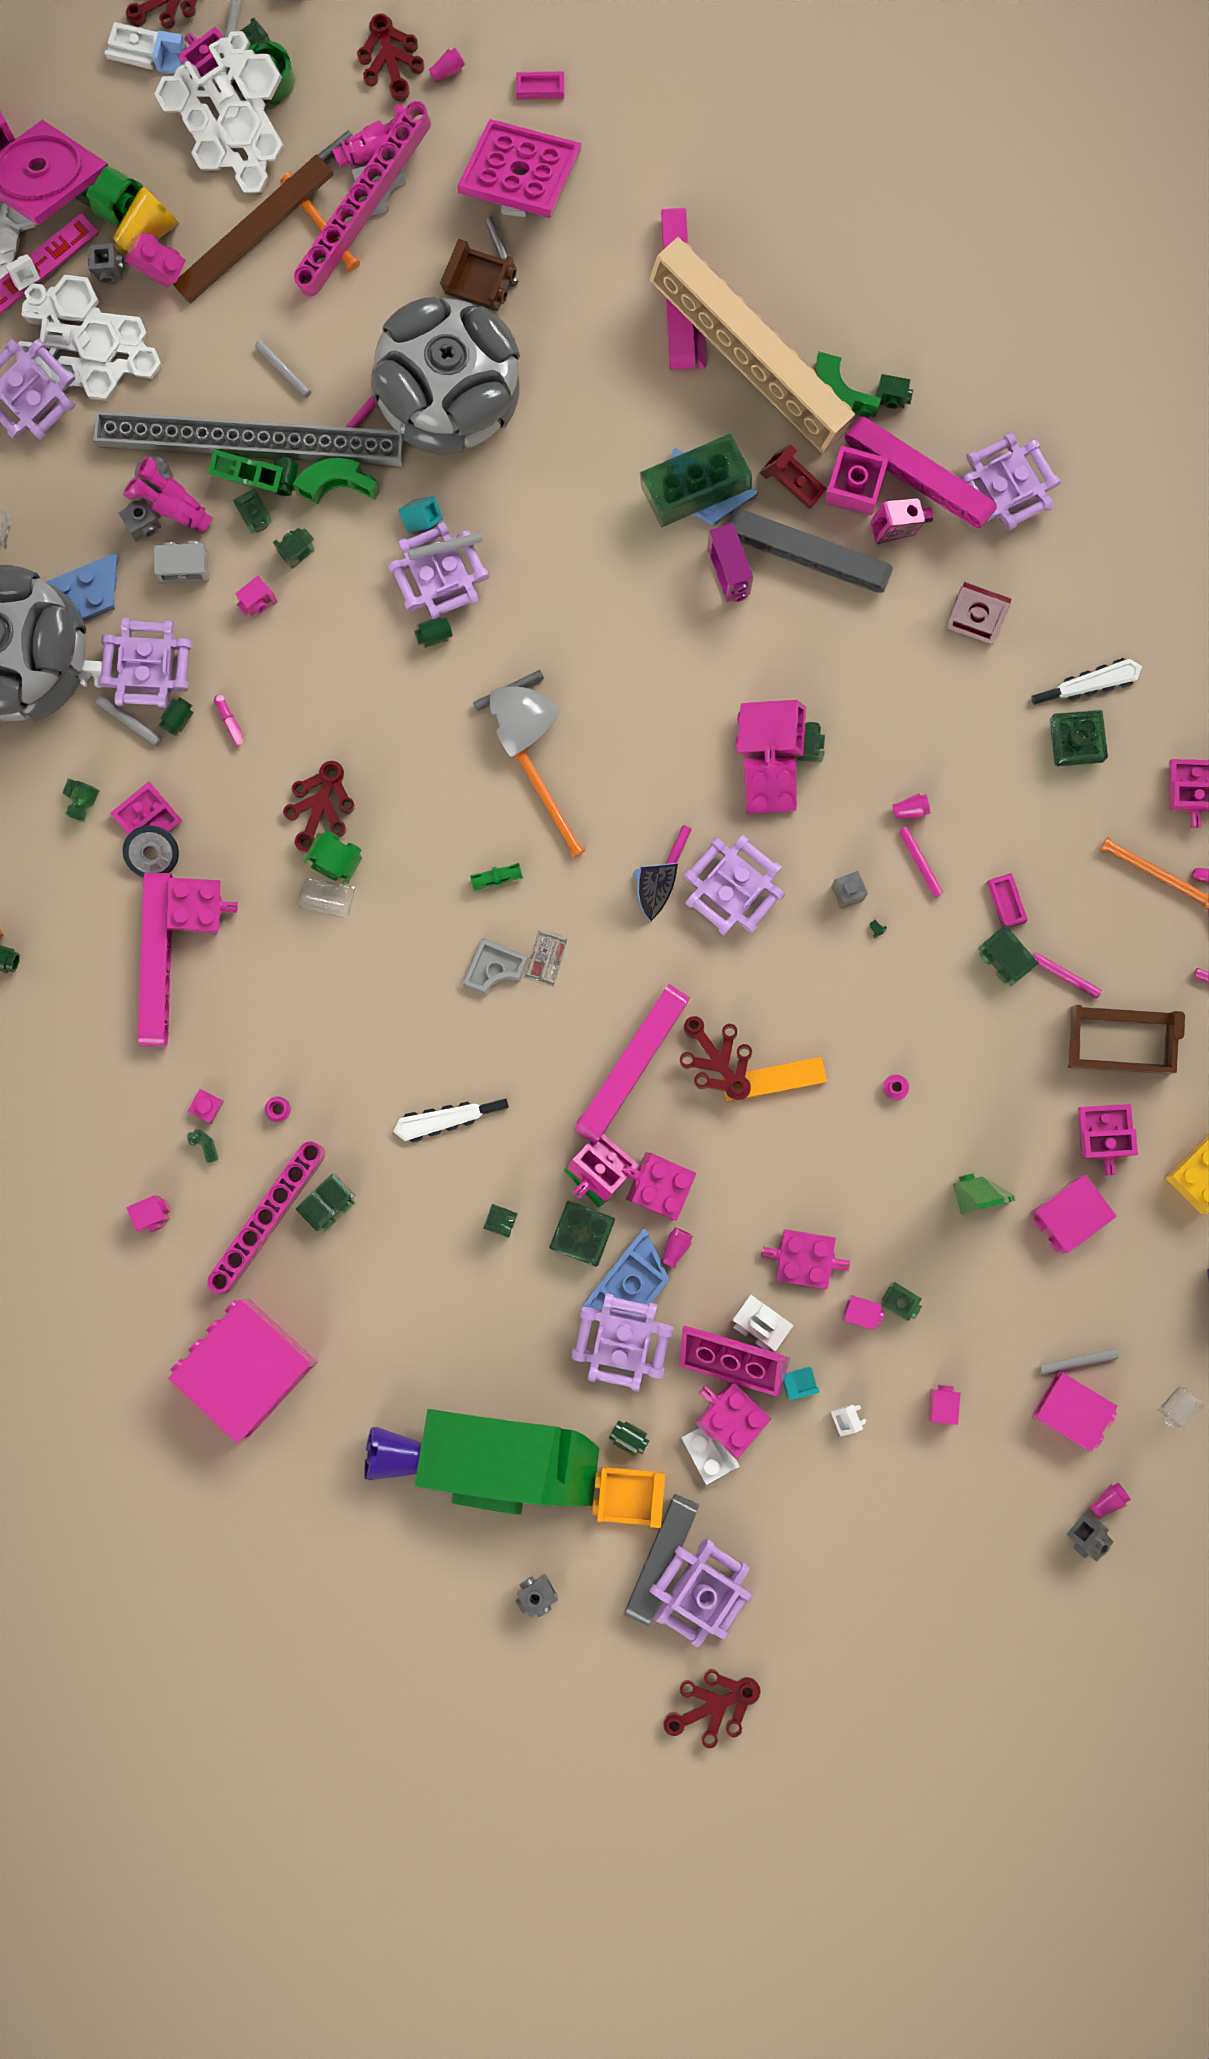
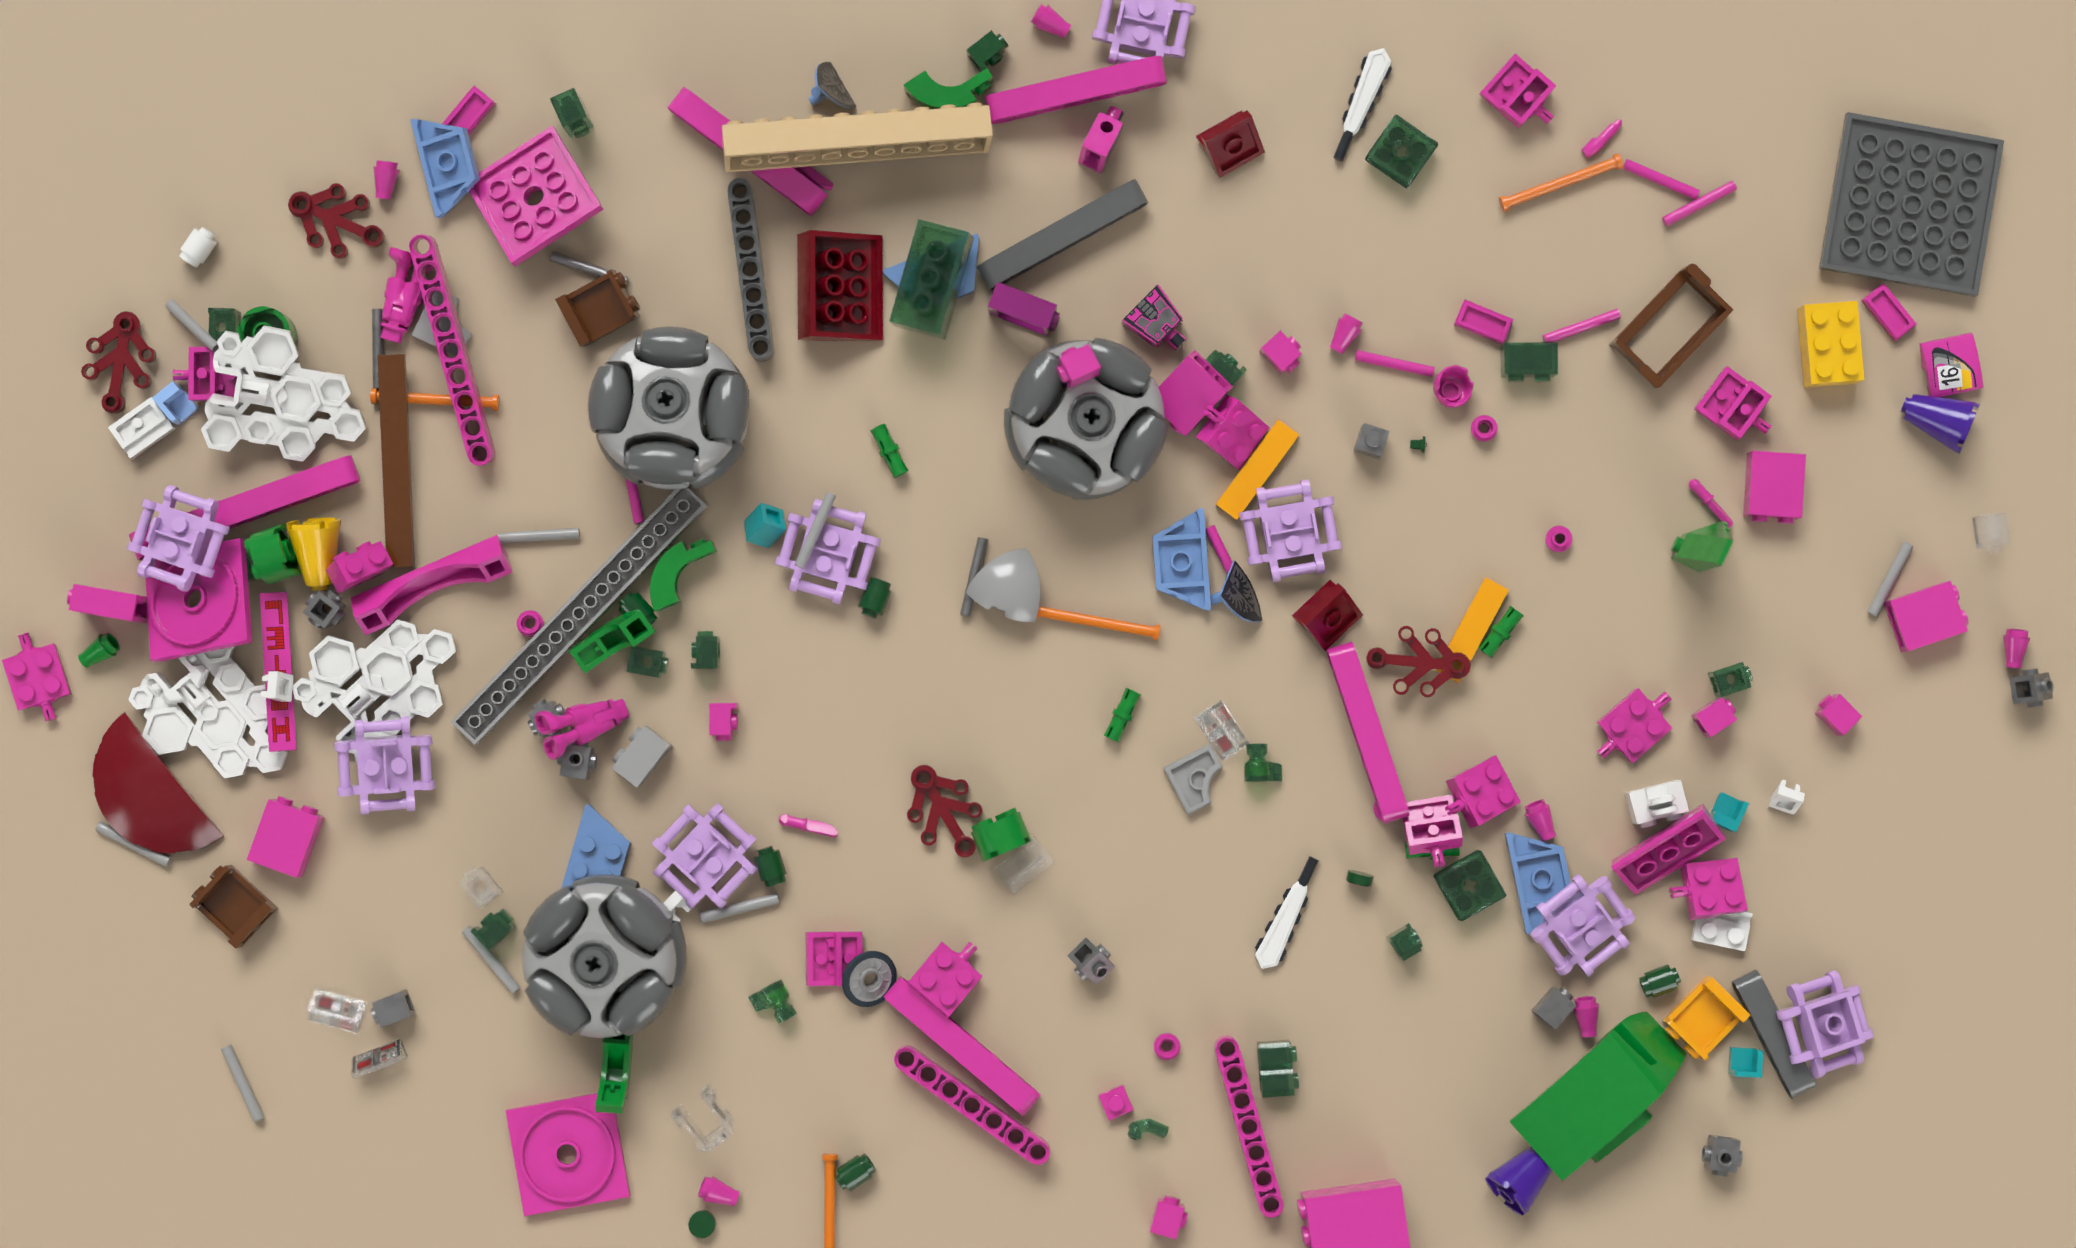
camera: 50 degrees left, 5 degrees up
(70, 119) = (178, 538): none -> lavender brick
(110, 991) = (979, 1116): none -> dark pink beam
(135, 156) = (281, 494): none -> dark pink beam
(151, 302) = (385, 602): none -> dark pink arch
(212, 405) = (522, 619): none -> dark pink plate
(294, 1000) = (1091, 961): none -> flat silver brick
(492, 95) = (446, 163): none -> medium blue wing
(519, 1147) = (1359, 878): none -> dark green tile
(539, 1007) = (1258, 768): none -> clear green piece
(544, 1373) = (1554, 1006): none -> flat silver brick
(548, 557) = (889, 450): none -> green pin
(558, 1403) = (1587, 1015): none -> dark pink cone
(600, 146) = (572, 113): none -> clear green brick
(600, 347) = (747, 257): none -> dark grey beam
(622, 1555) = (1745, 1062): none -> teal panel
(637, 427) = (839, 286): none -> dark red slope
(645, 827) = (1183, 561): none -> medium blue wing
(688, 665) = (1086, 422): none -> piece
(695, 964) = (1328, 614): none -> dark red bracket
(716, 1706) = (1918, 1084): dark red plant -> none
(719, 616) = (1077, 365): none -> dark pink brick
(759, 826) = (1257, 469): none -> light orange tile
(773, 302) = (830, 86): none -> shield
(790, 1101) = (1501, 632): none -> green pin
(793, 476) = (990, 194): dark red bracket -> none
(803, 664) = (1156, 320): none -> torso
(856, 480) = (1038, 146): dark pink brick -> none
(858, 773) = (1282, 352): none -> dark pink brick
(933, 958) = (1492, 428): none -> dark pink plate
(940, 915) = (1453, 386): none -> dark pink hair
(952, 417) = (1050, 21): none -> dark pink cone
(1020, 1173) = (1707, 498): none -> dark pink piece

